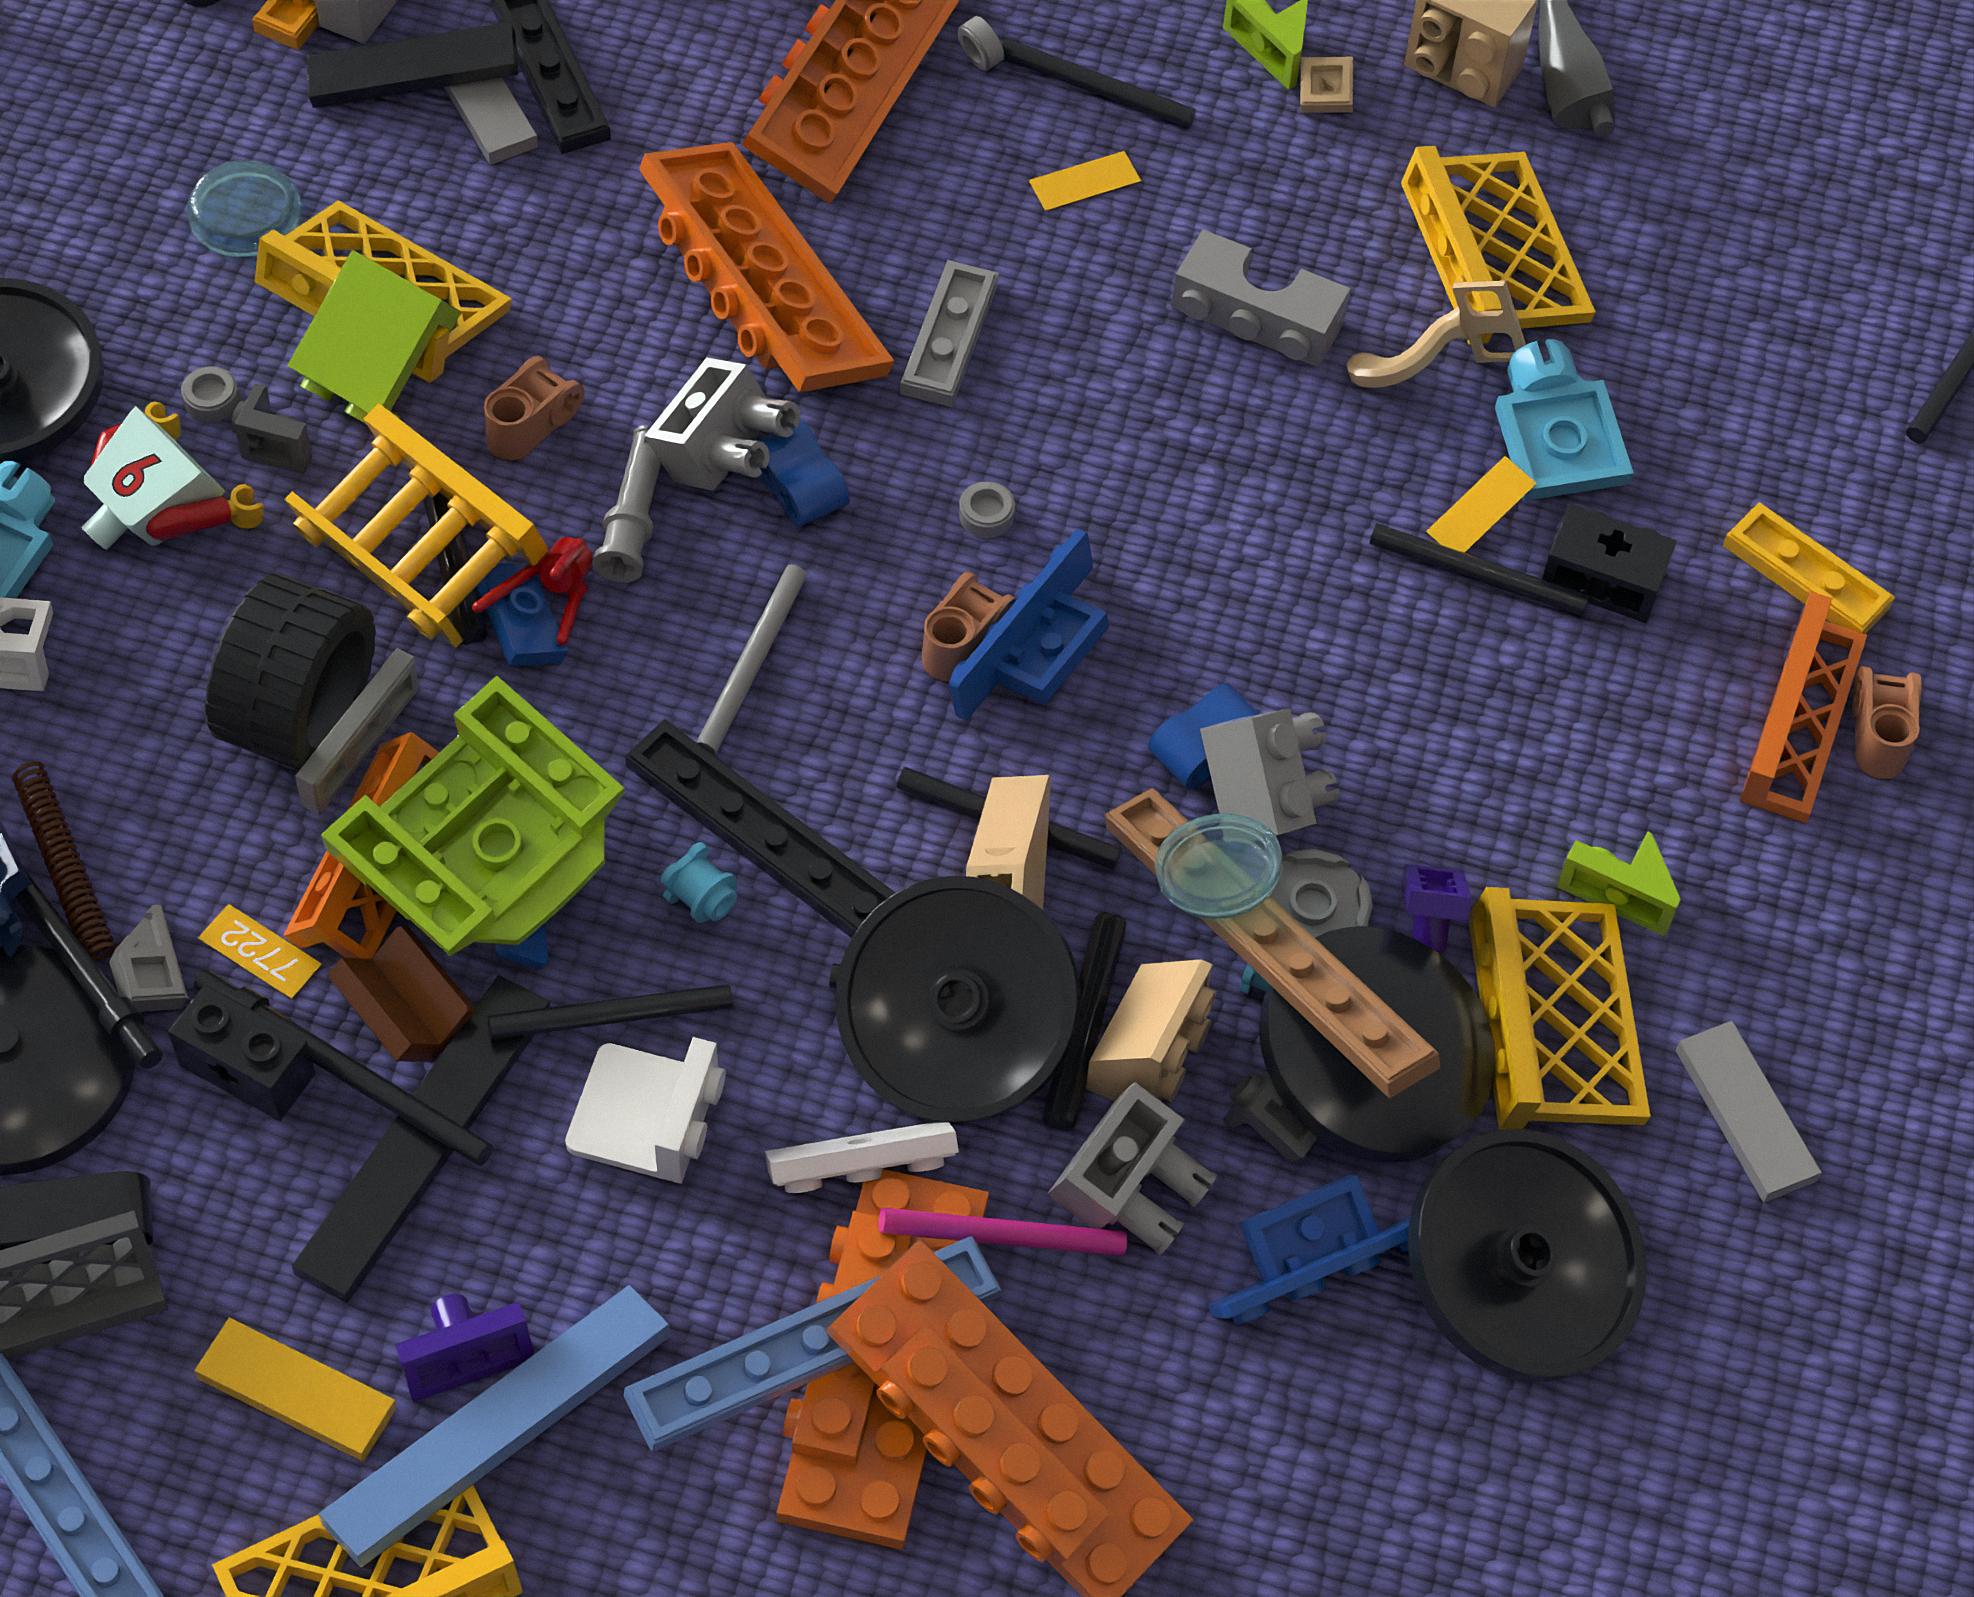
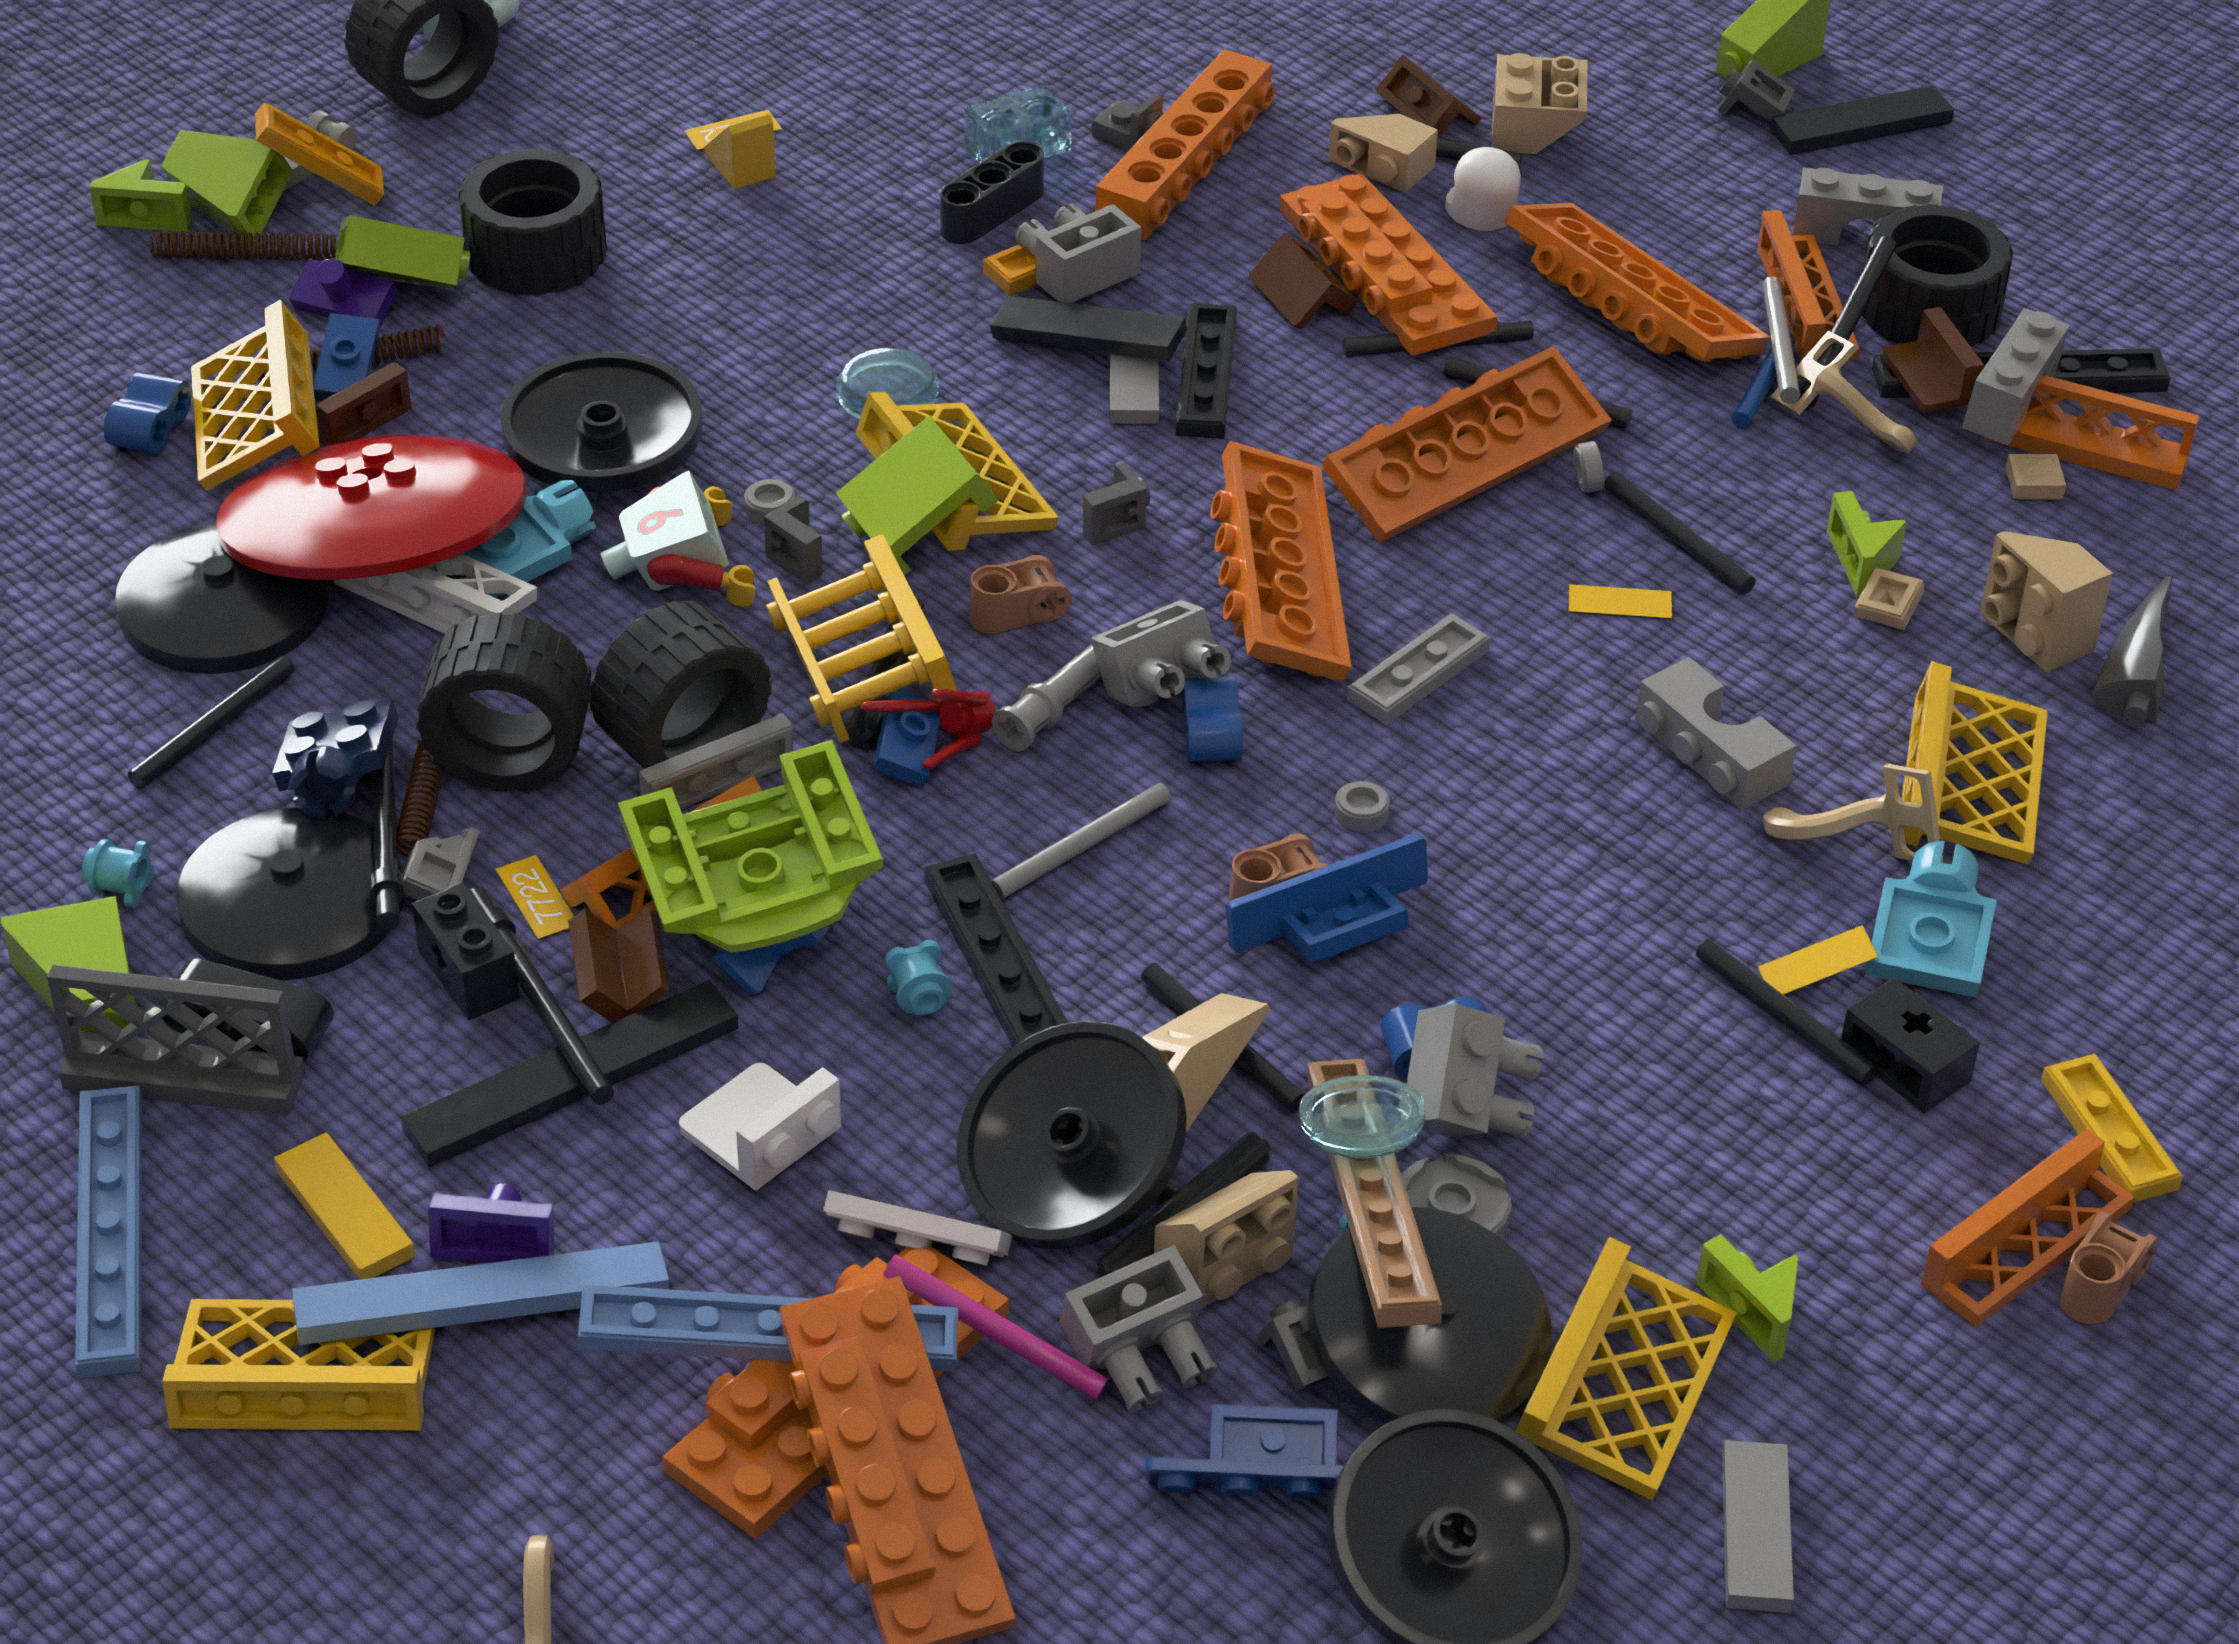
camera: 30 degrees right, 15 degrees down
(118, 759) = (514, 658): none -> black tyre
(565, 266) = (1116, 508): none -> dark grey bracket
(609, 1011) = (781, 1040): black bar -> none
(1435, 899) = (1557, 1235): dark purple tile -> none

